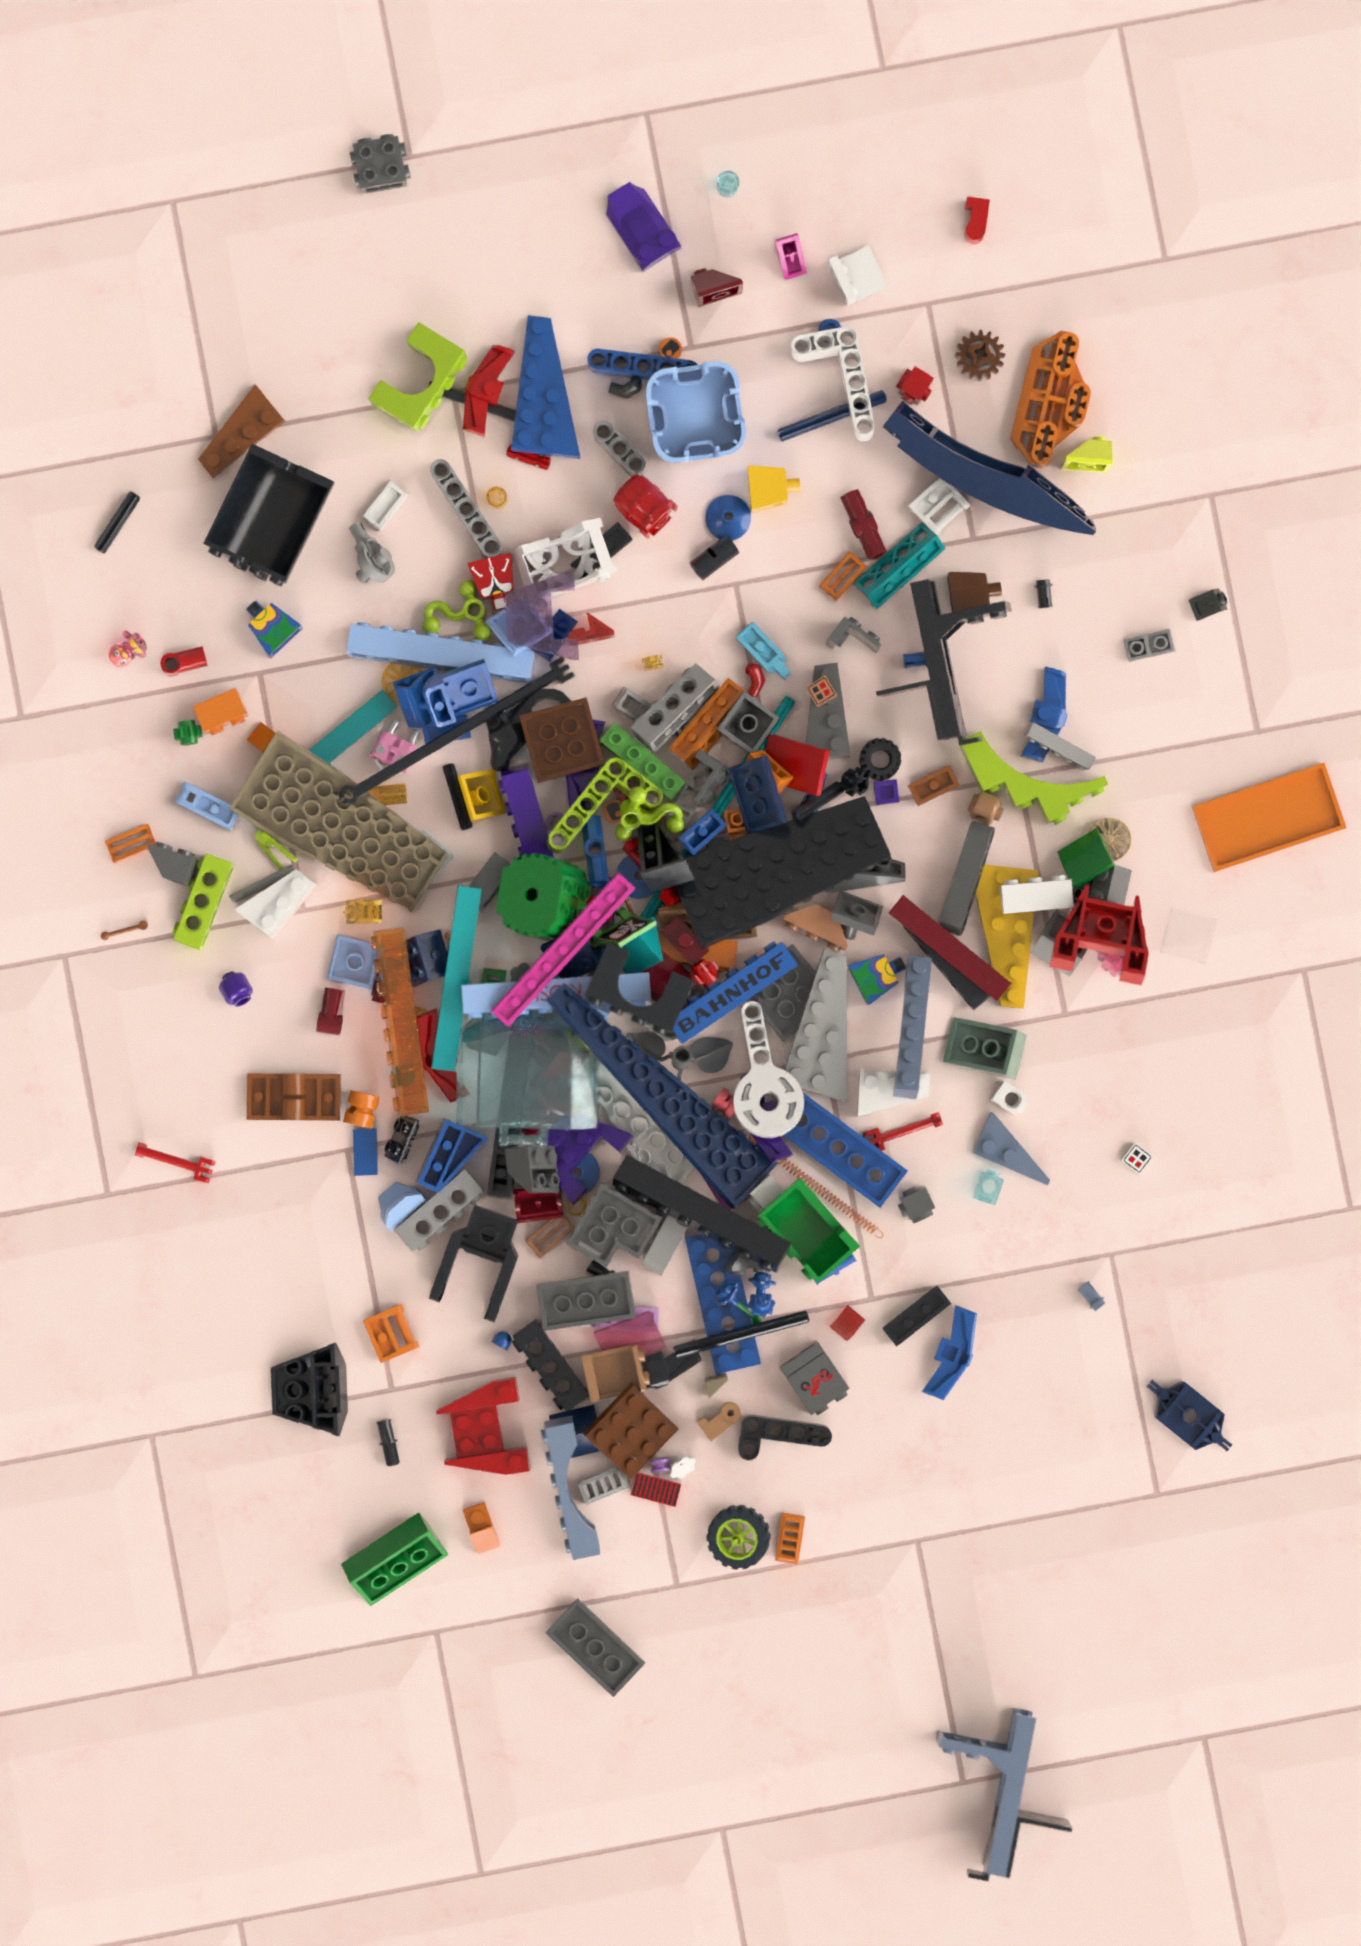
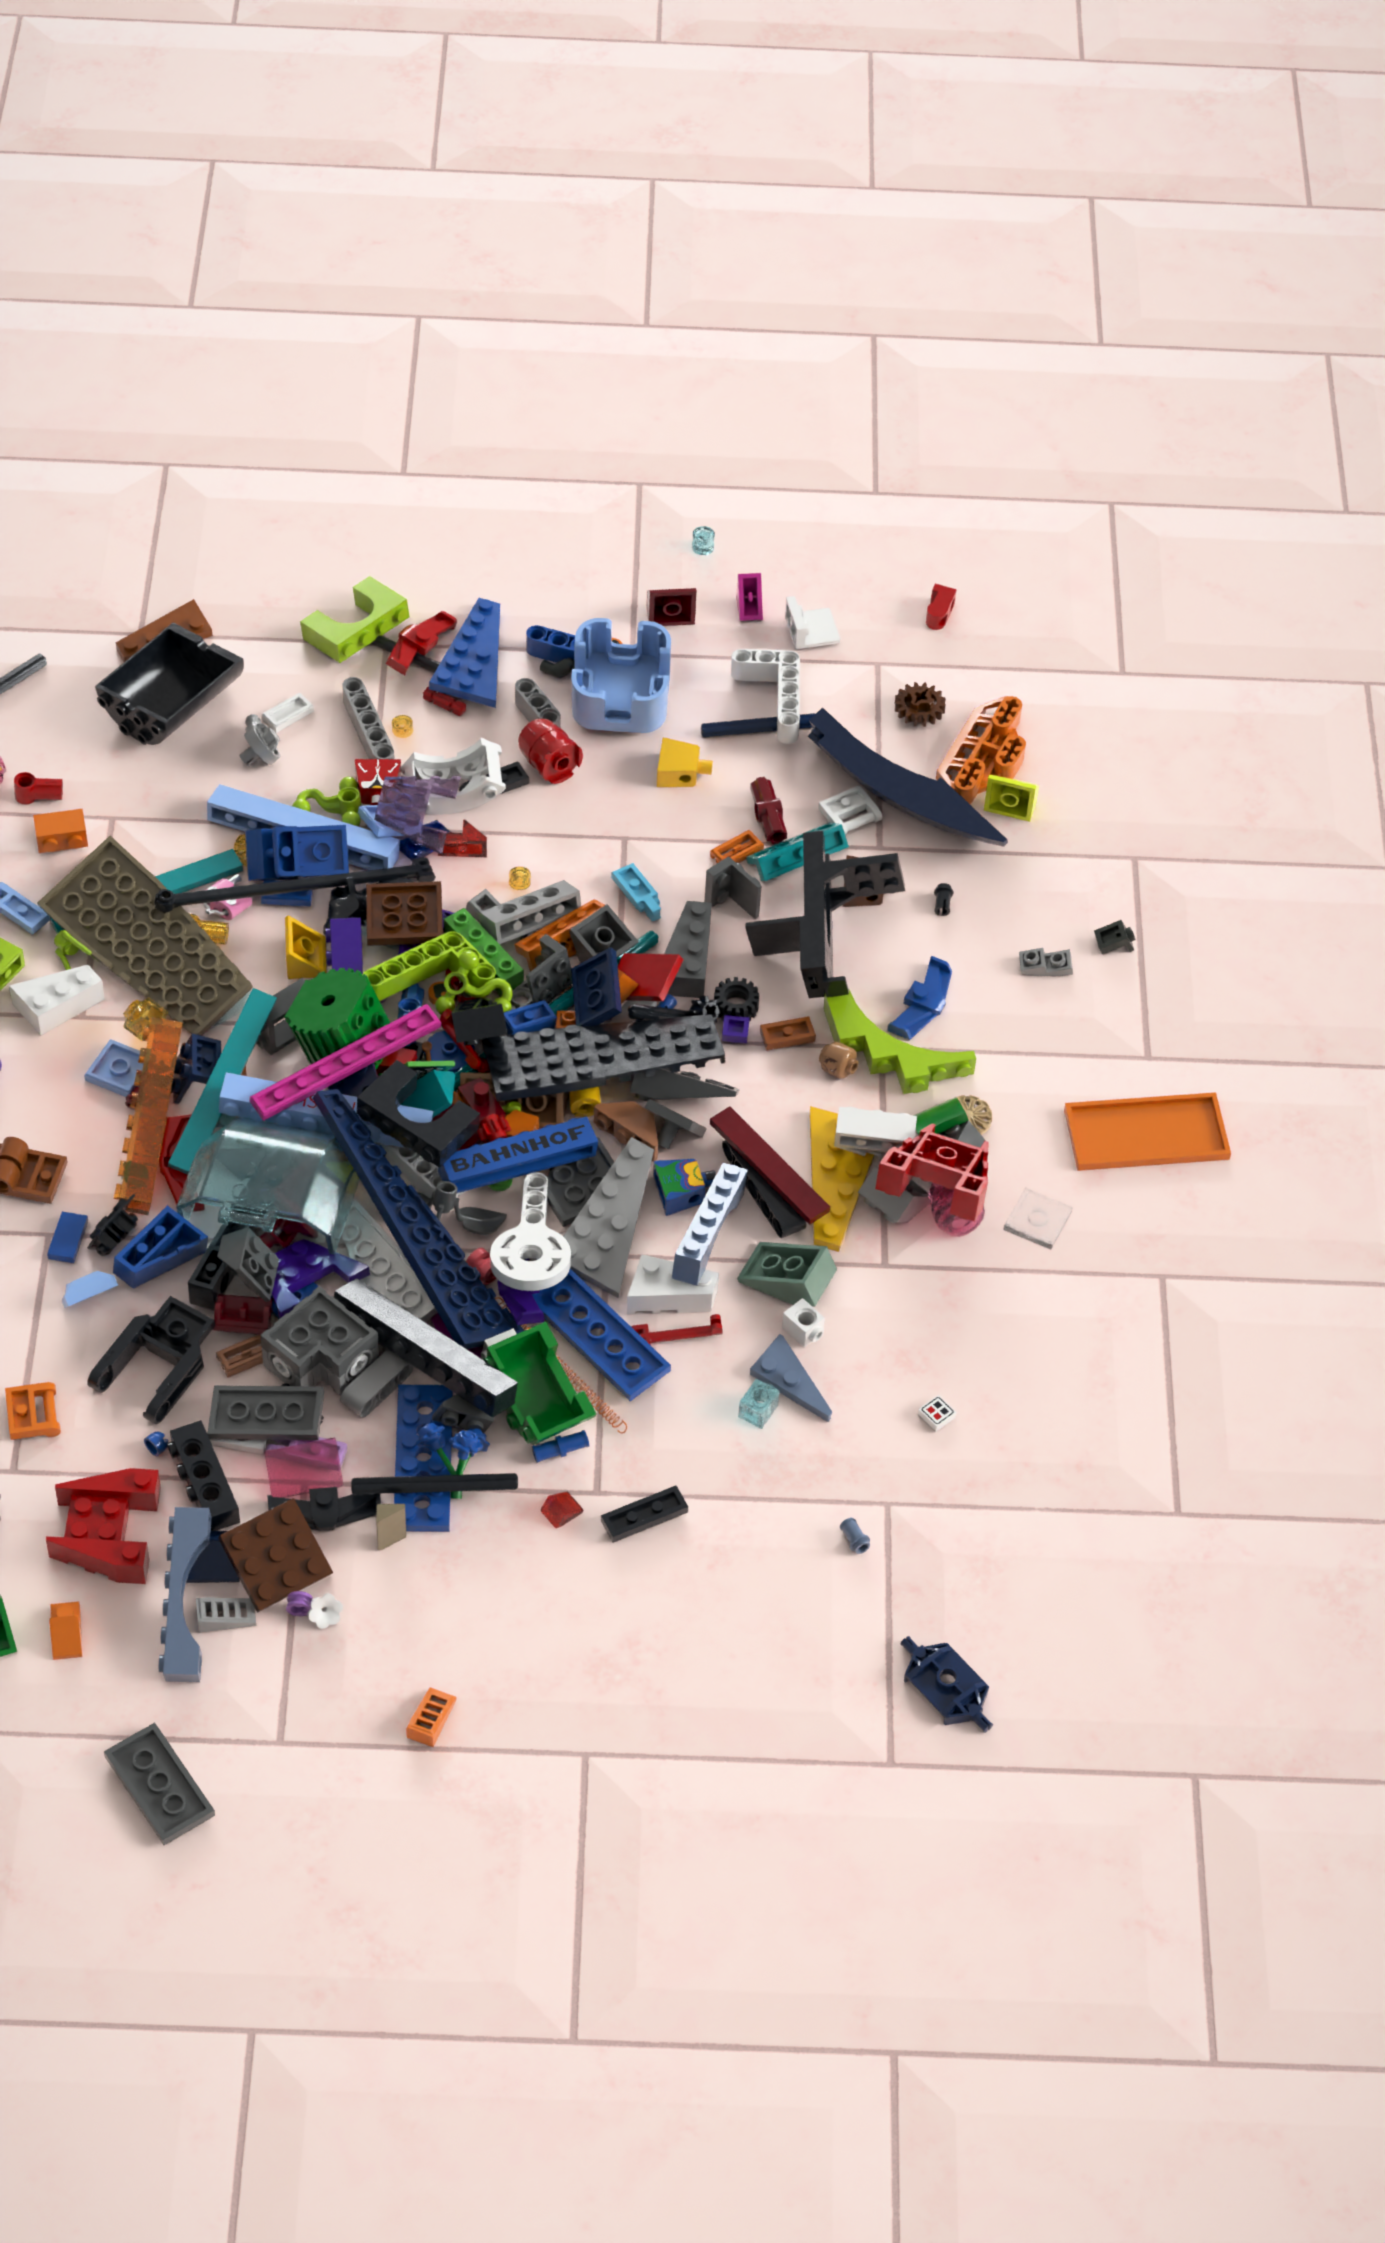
camera: 10 degrees right, 35 degrees down
(187, 732) = (19, 843): green gear -> none
(272, 627) = (140, 779): torso -> none
(331, 1017) = (77, 1106): dark red piece -> none
(361, 1109) = (80, 1188): orange wheel -> none
(380, 164) = (372, 468): dark grey brick -> none
(408, 1229) = (115, 1301): light grey brick -> none
(457, 796) = (279, 950): black axle -> none
(613, 1370) = (270, 1486): medium nougat panel -> none
(640, 226) = (609, 556): dark purple slope -> none
(656, 1489) = (286, 1632): tile -> none
(714, 557) = (608, 808): black pin -> none
(721, 1421) = (383, 1573): medium nougat leg -> none
(727, 1555) = (354, 1674): black wheel -> none
(733, 528) = (631, 785): blue dish -> none
(757, 678) = (624, 909): red arm -> none
(784, 1436) = (492, 1609): black beam -> none
(815, 1379) = (508, 1550): dark grey panel -> none
(821, 691) = (688, 916): nougat tile -> none
(915, 386) = (850, 713): red brick -> none
(916, 1204) = (673, 1403): dark grey brick -> none
(953, 1353) = (676, 1560): blue plate -> none
(966, 877) = (805, 1109): dark grey beam -> none
(1007, 1817) = (638, 2011): sand blue piece -> none
(1059, 746) = (931, 1023): light grey piece -> none

